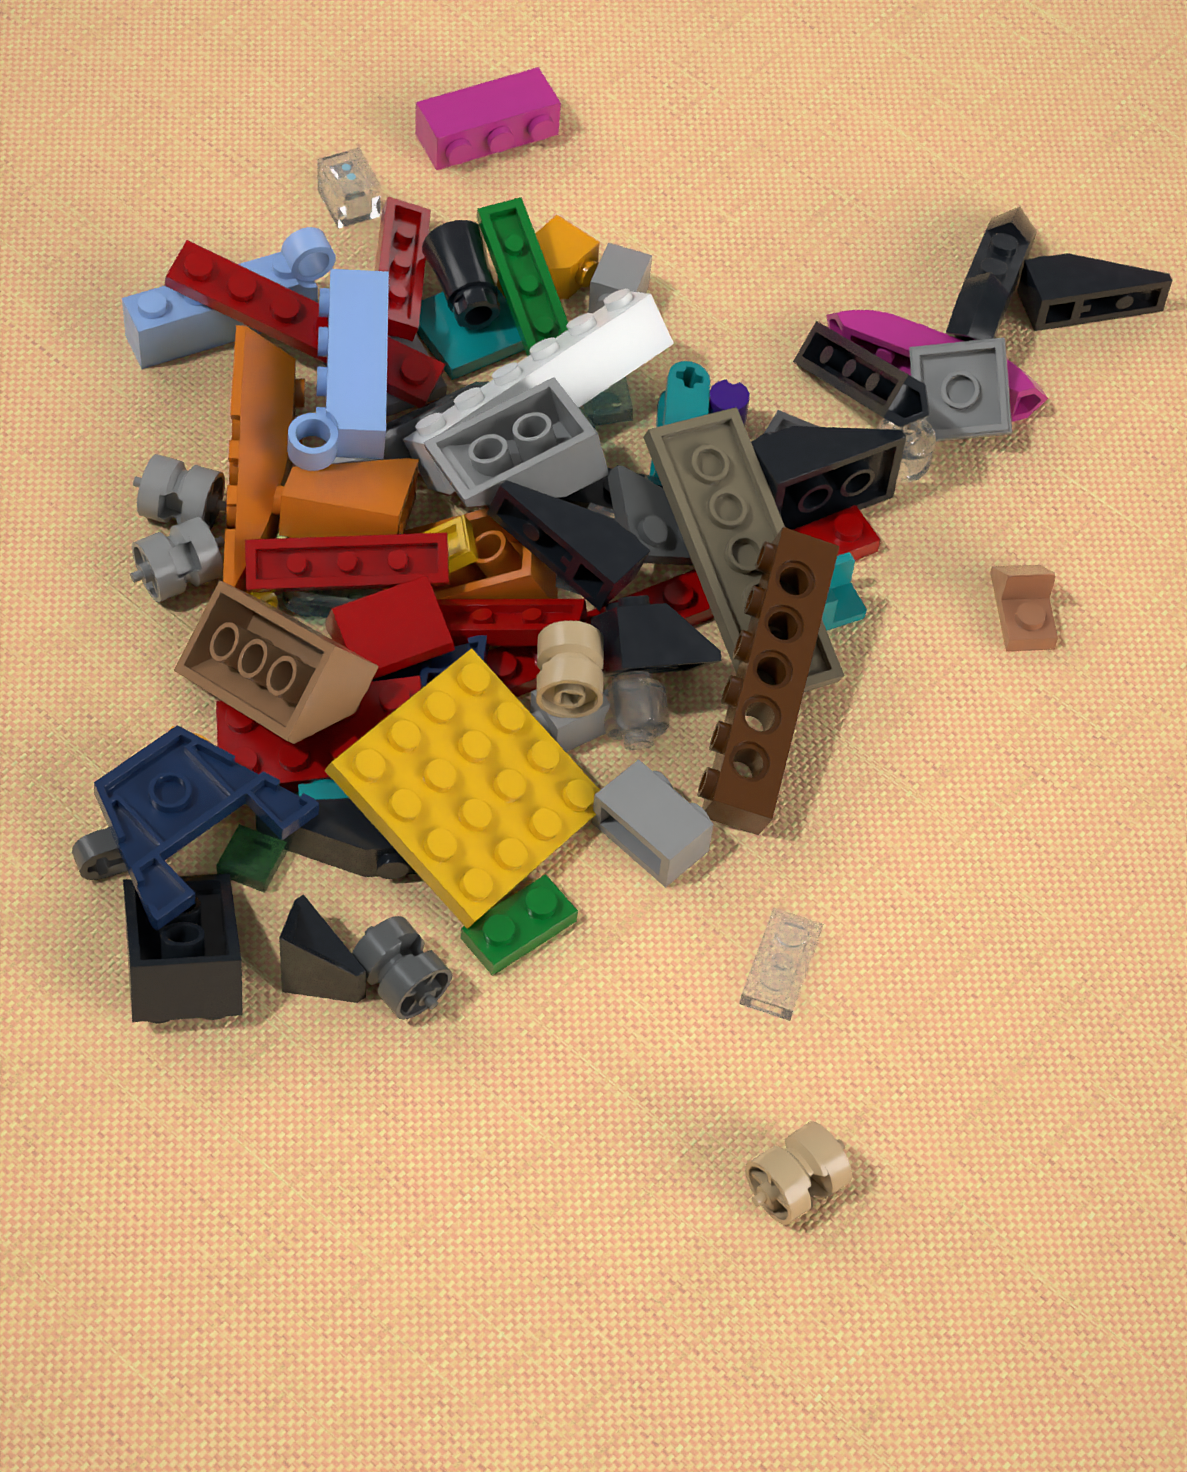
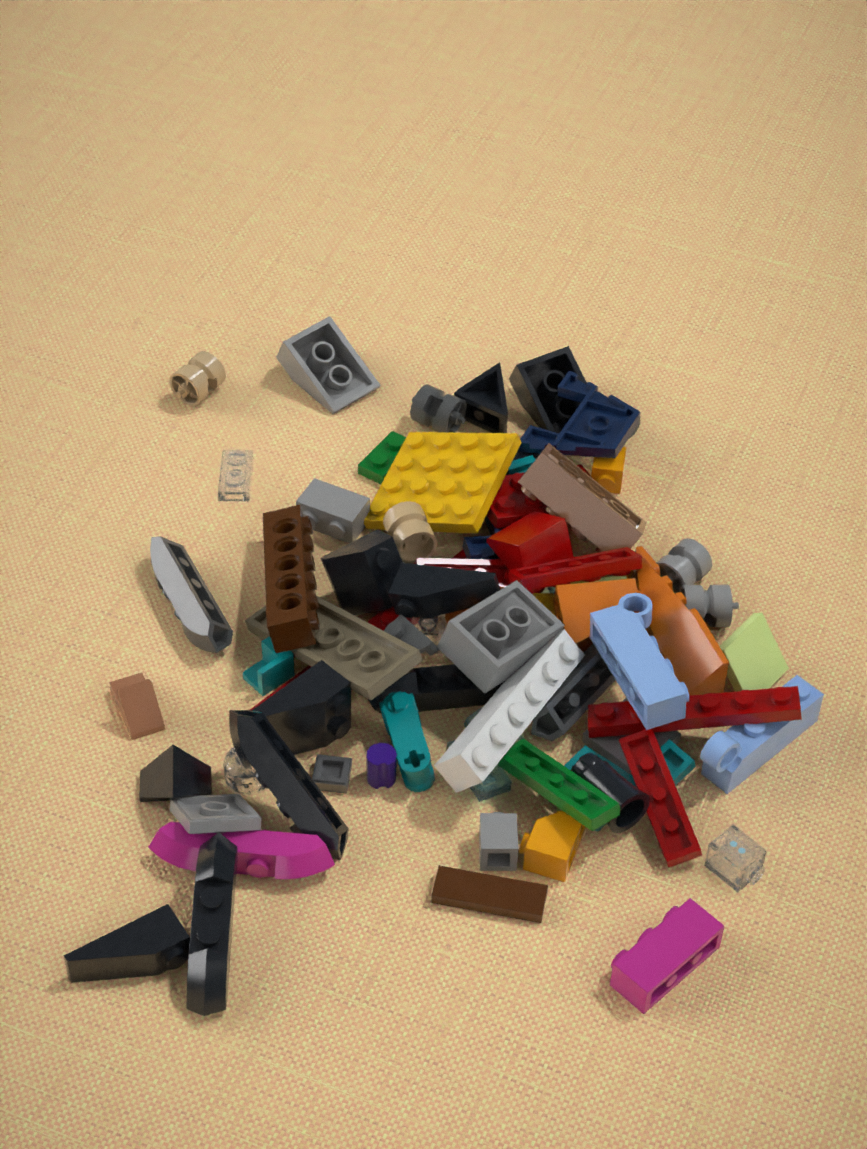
camera: 165 degrees right, 10 degrees down
(176, 385) = (753, 655): none -> yellowish green tile
(556, 1141) = (327, 366): none -> light grey slope
(672, 254) = (489, 894): none -> reddish brown tile
(918, 737) = (189, 595): none -> dark grey brick
(997, 467) = (174, 775): none -> black slope

